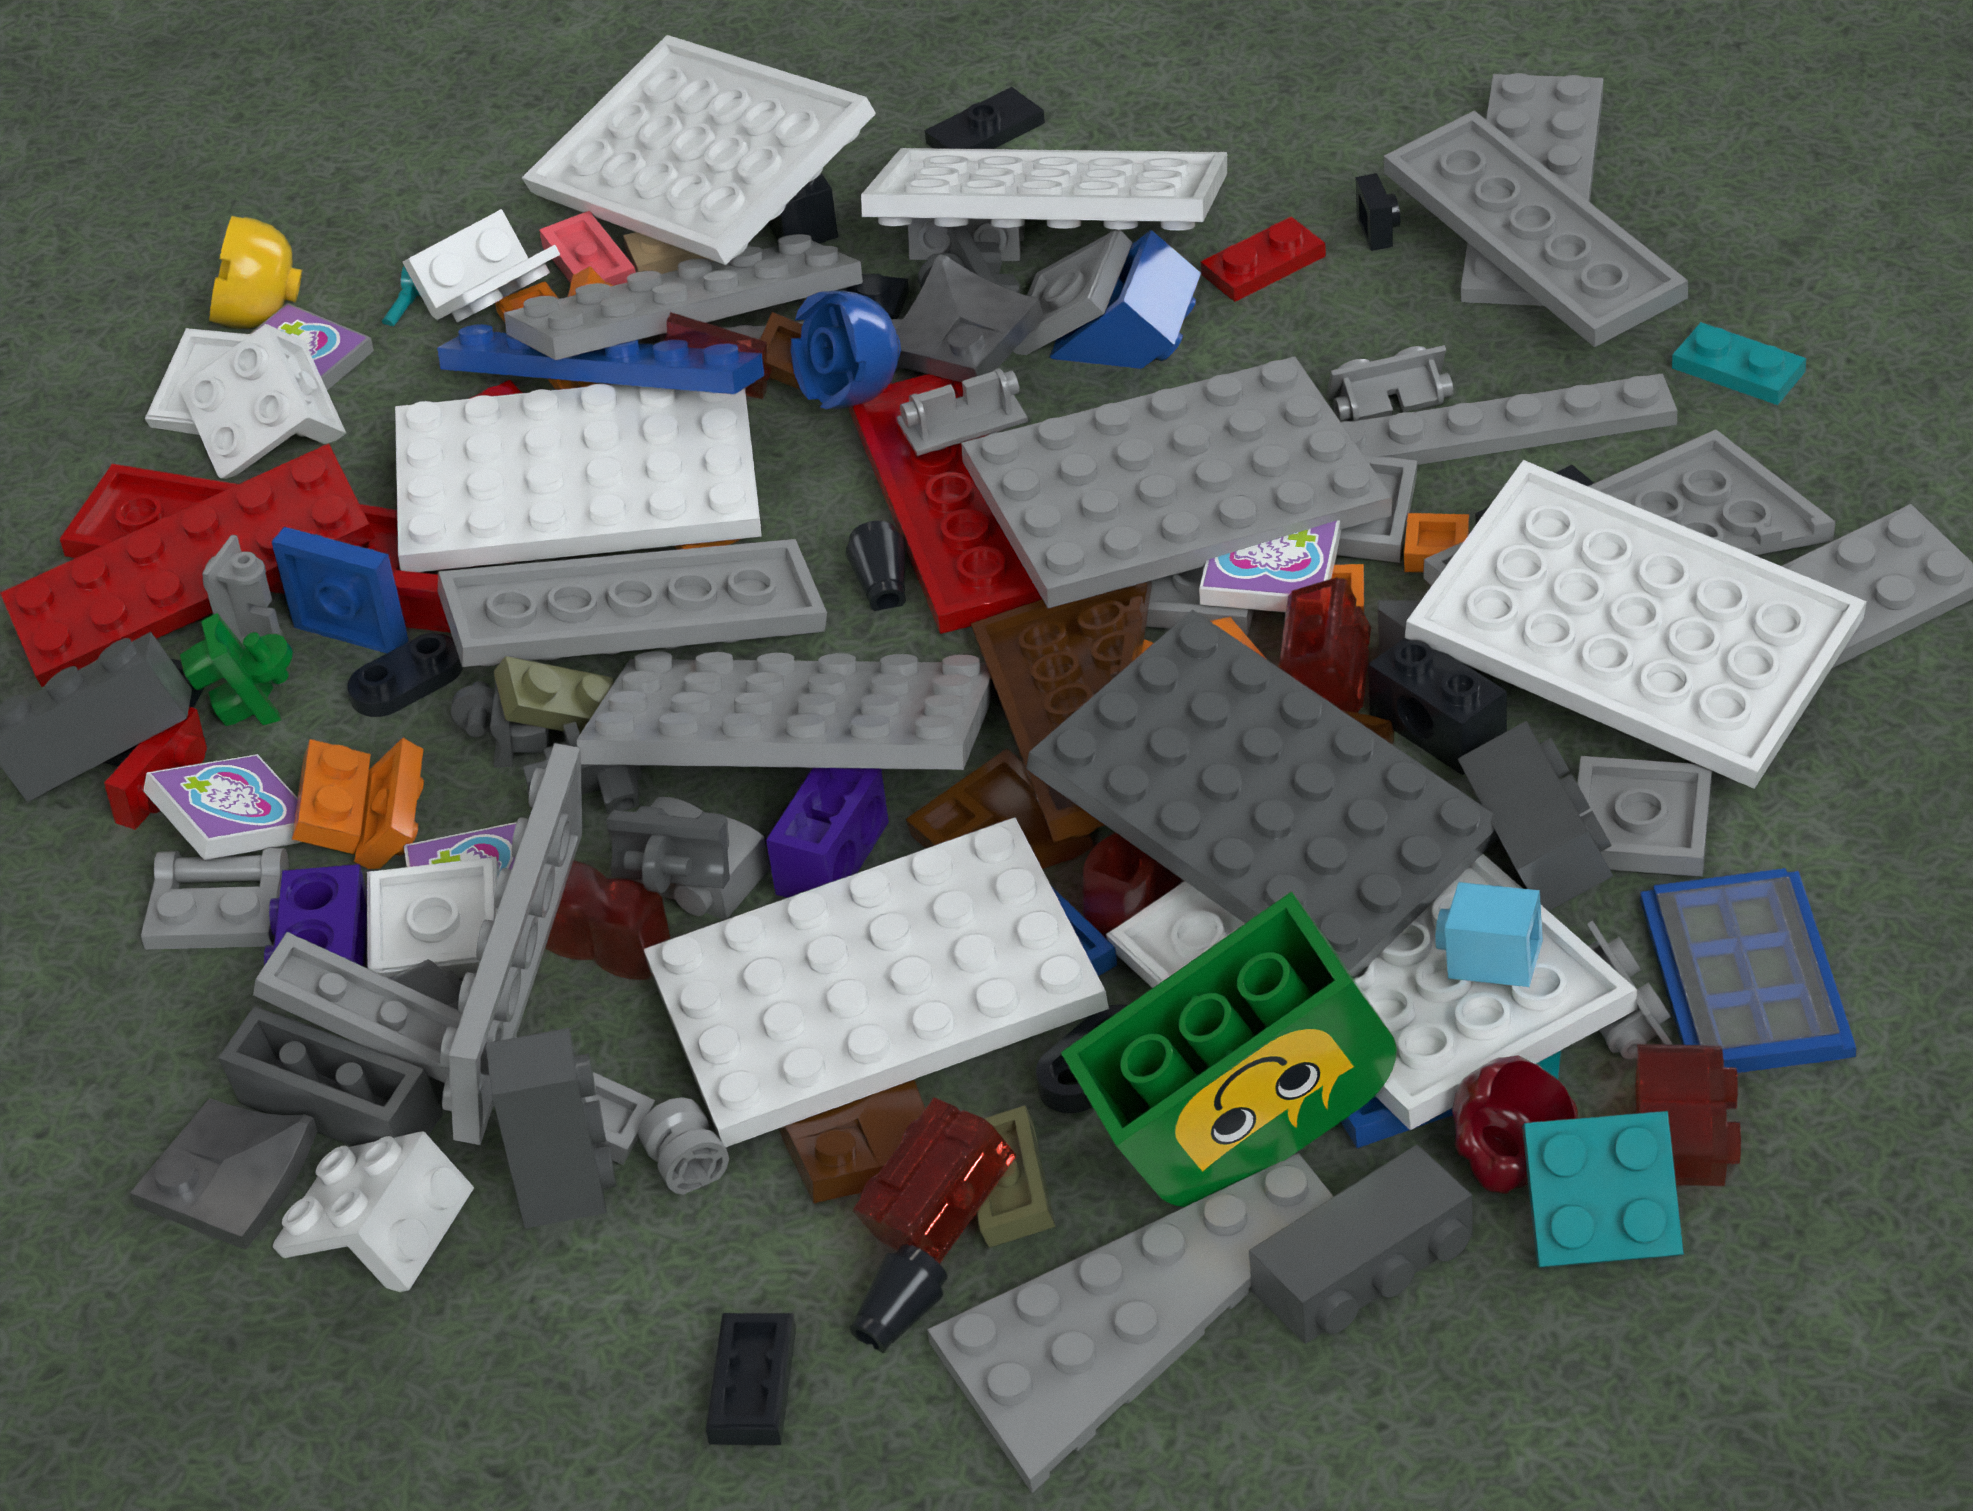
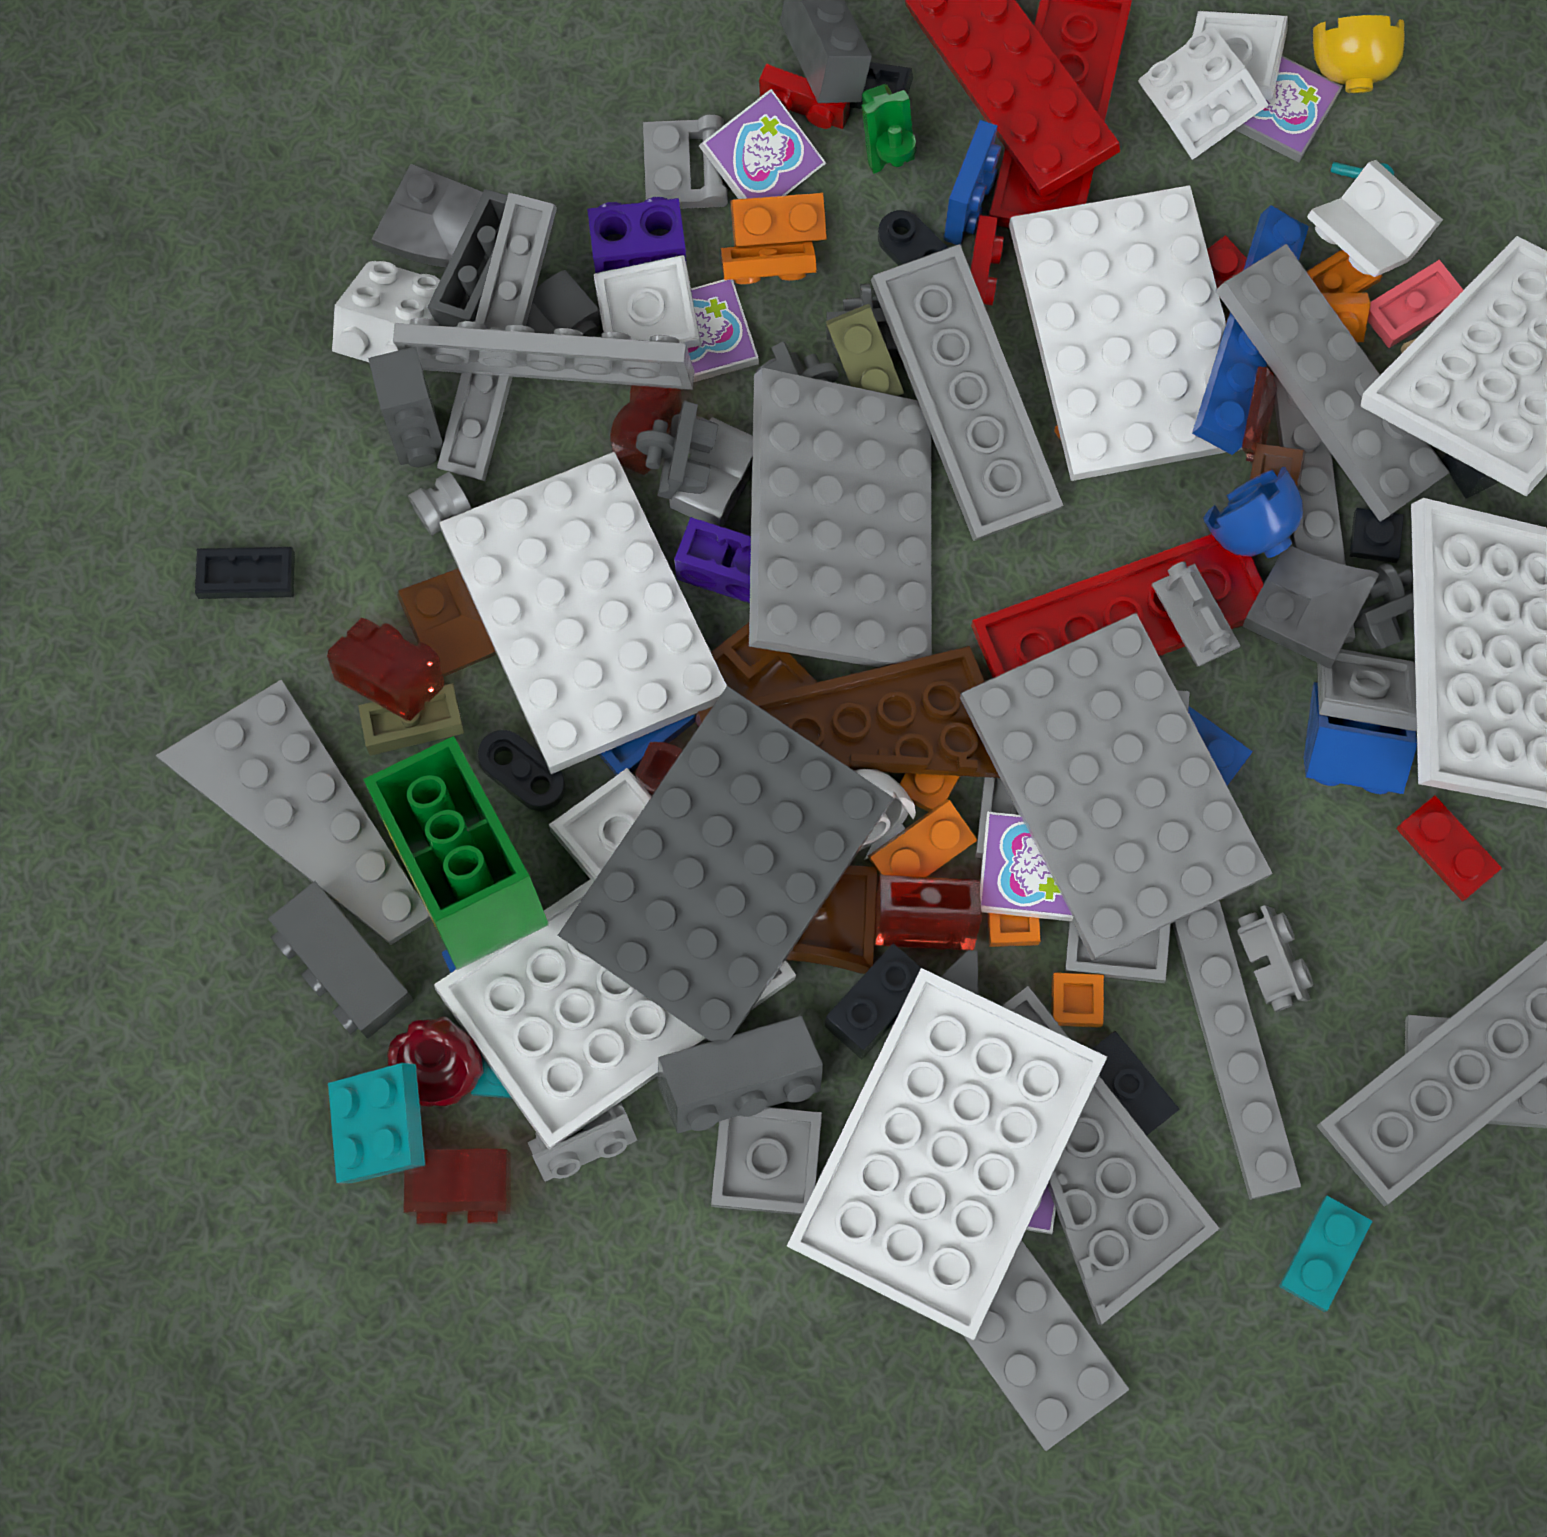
camera: 80 degrees right, 30 degrees up
(240, 591) = (959, 113): light grey hinge -> none
(879, 563) = (1037, 572): black cone -> none
(899, 1296) = (304, 657): black cone -> none
(1376, 211) = (1505, 940): black plate -> none
(1491, 934) = (588, 1038): medium azure brick -> none
(1747, 969) = (611, 1237): clear piece -> none

